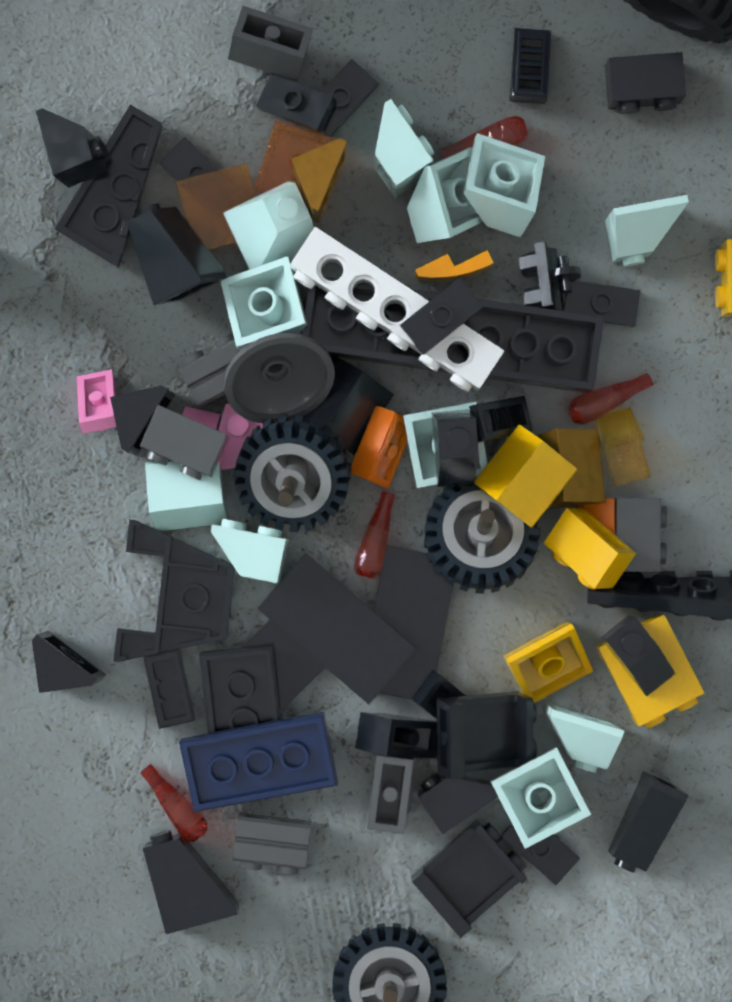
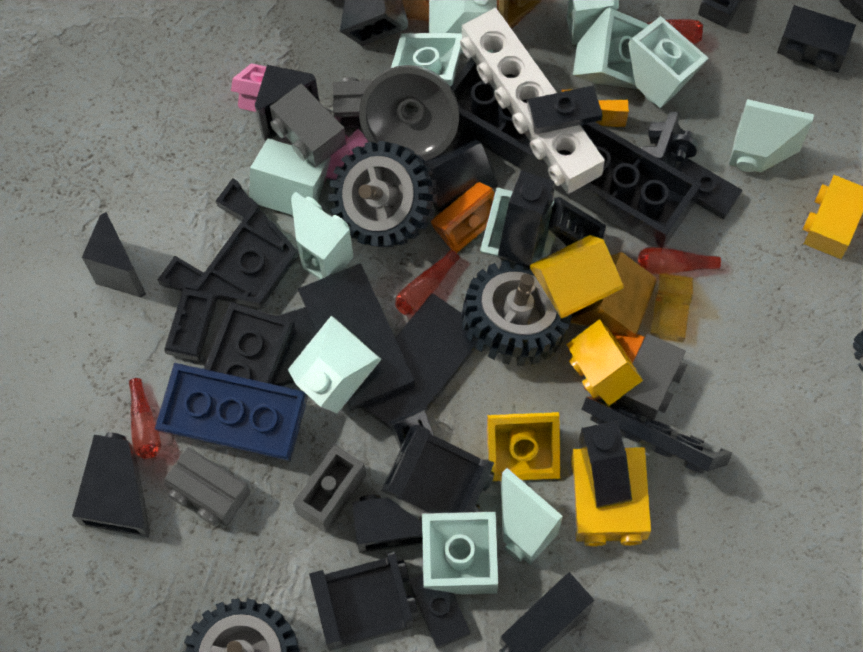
camera: 30 degrees right, 20 degrees down
(332, 676) = (333, 366): none -> light aqua slope
(397, 735) = (362, 442): black slope -> none

